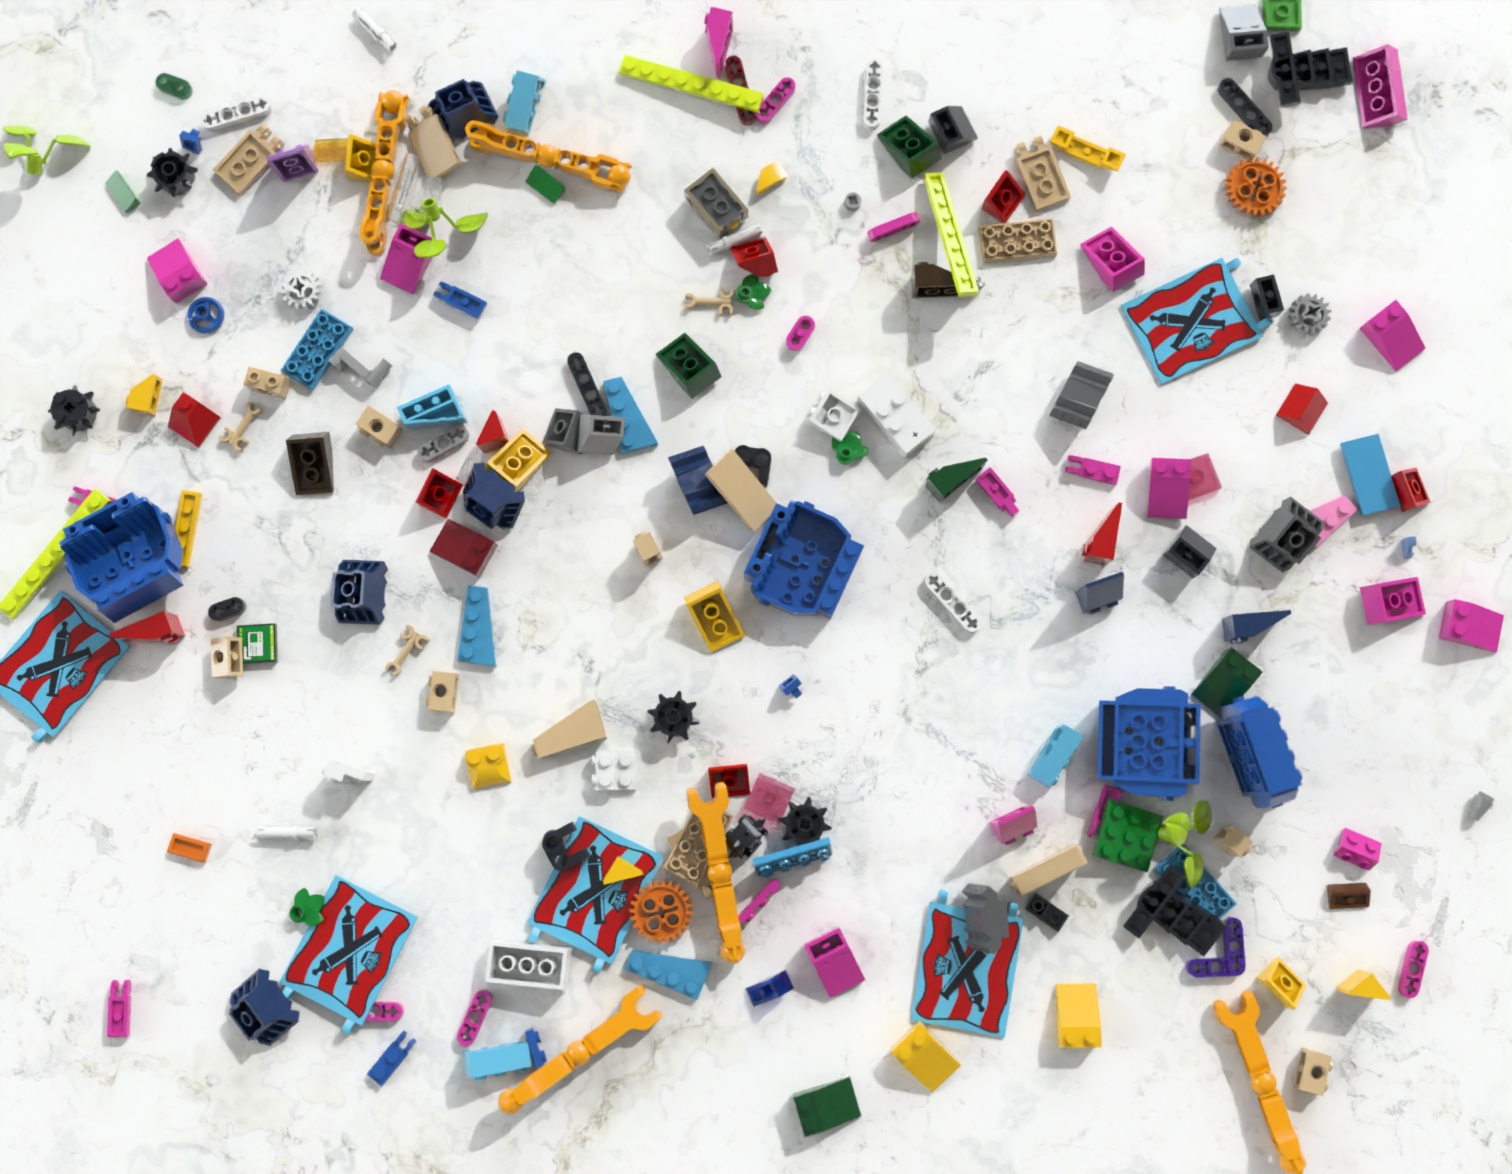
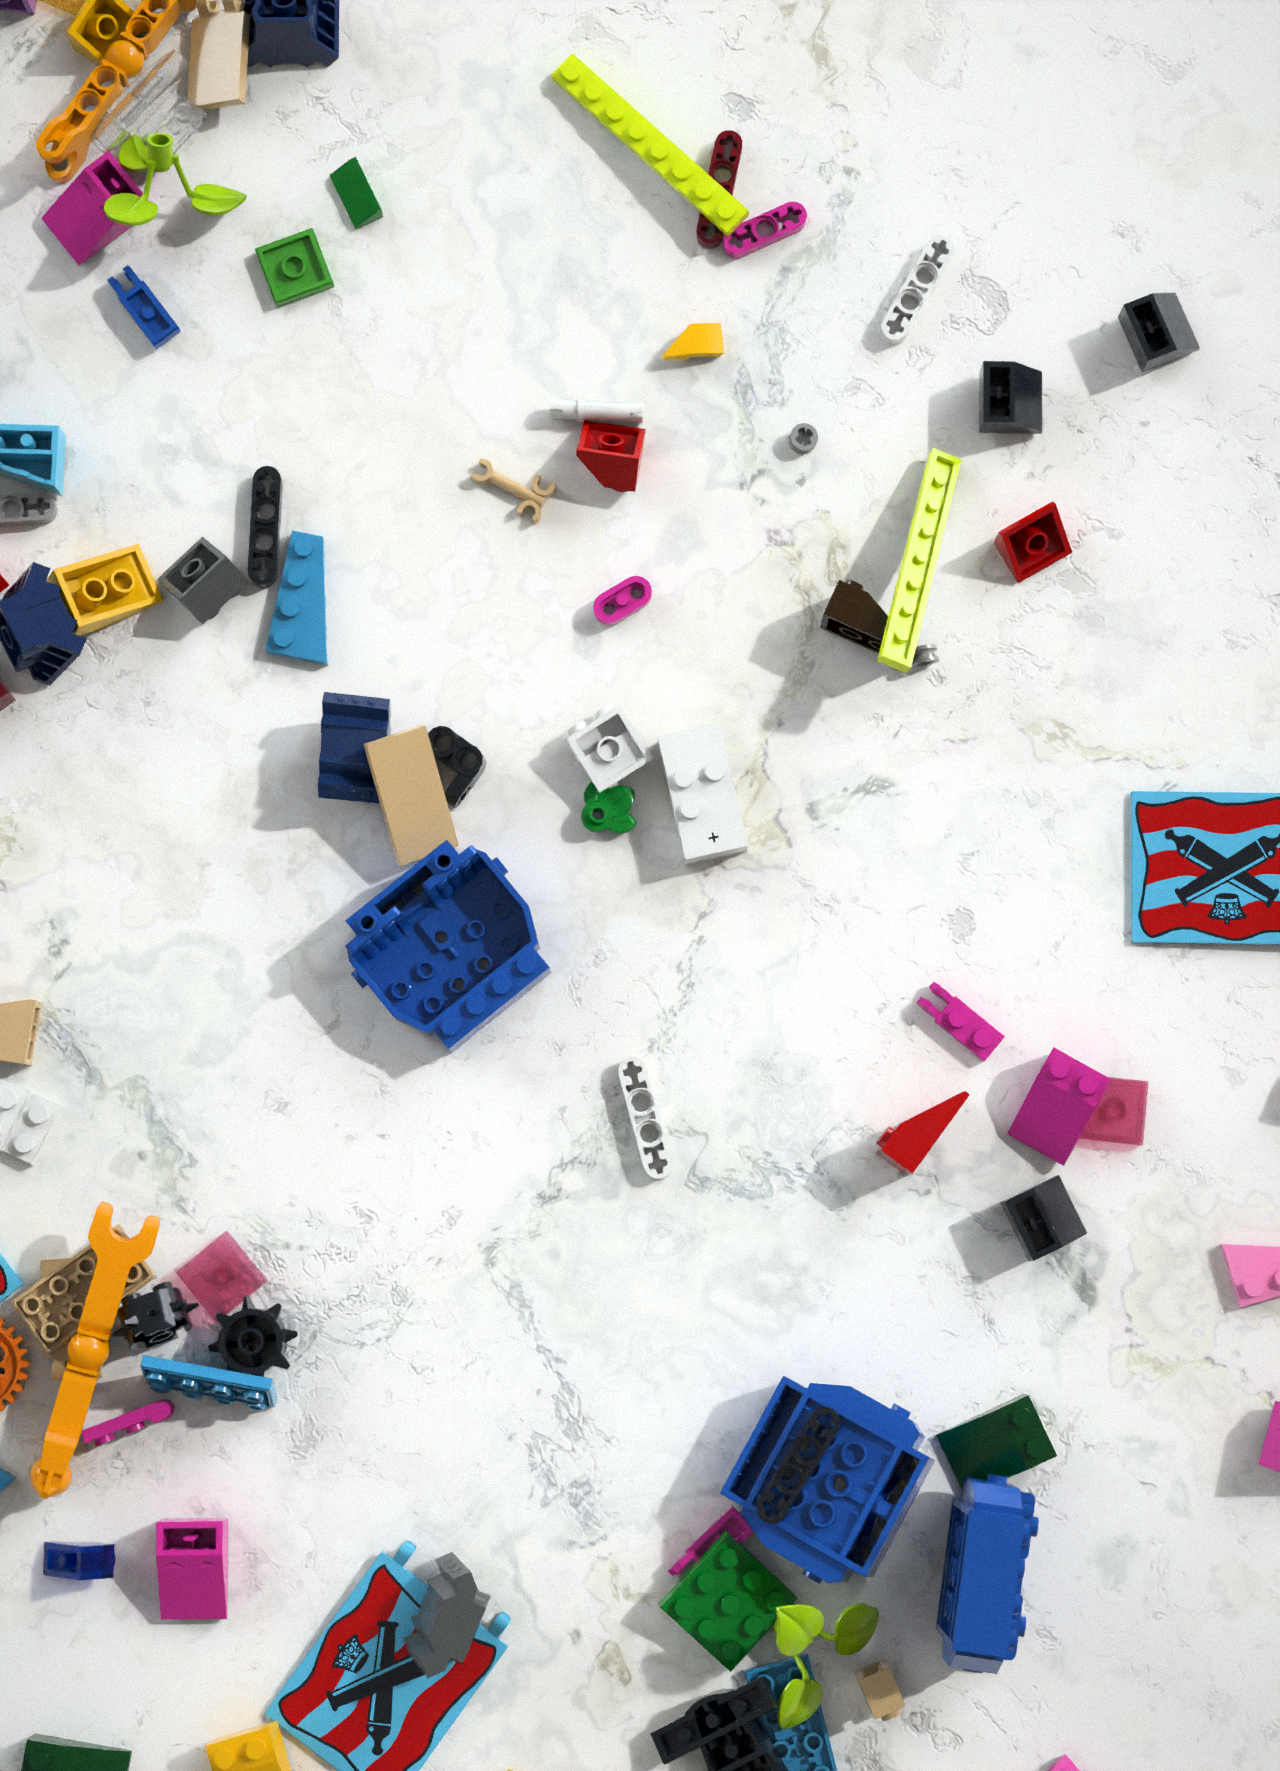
camera: 25 degrees right, 0 degrees up
(493, 434) = (87, 531): red slope -> none
(497, 142) = (379, 153): light orange piece -> none
(523, 101) = (384, 52): medium azure wedge -> none
(531, 240) = (294, 267): none -> bright green tile
(600, 433) = (244, 607): light grey slope -> none
(647, 548) = (227, 813): tan brick -> none
(663, 722) = (122, 1087): black brick -> none
(689, 365) = (431, 568): dark green slope -> none
(714, 616) = (277, 963): yellow slope -> none
(716, 203) = (594, 343): piece -> none
(719, 32) = (728, 89): dark pink slope -> none
(733, 776) = (182, 1220): red slope -> none
(755, 290) = (587, 506): green plate -> none
(790, 686) = (338, 1124): blue tile -> none
(893, 227) = (844, 506): dark pink beam -> none
(910, 146) = (931, 396): dark green slope -> none
(949, 478) = (734, 929): dark green slope -> none
(997, 491) = (797, 983): dark pink hinge -> none
(1011, 55) = (1157, 329): none -> black slope
(1014, 824) = (563, 1499): dark pink slope -> none
(1017, 240) = (1023, 618): tan tile -> none
(1041, 174) = (1110, 535): tan tile -> none
(1047, 912) = (548, 1655): black slope -> none
(1048, 869) = (579, 1591): tan slope -> none
(1055, 755) = (678, 1427): medium azure wedge -> none
(1081, 394) = (996, 899): dark grey slope -> none
(1086, 151) = (1197, 530): yellow slope -> none
(1101, 593) = (872, 1216): dark blue slope -> none
(1114, 258) = (1155, 715): dark pink slope -> none
(1133, 742) = (794, 1462): none -> black beam
(1240, 627) = (1071, 1375): dark blue slope -> none
(1288, 535) = (1204, 1267): dark grey slope -> none

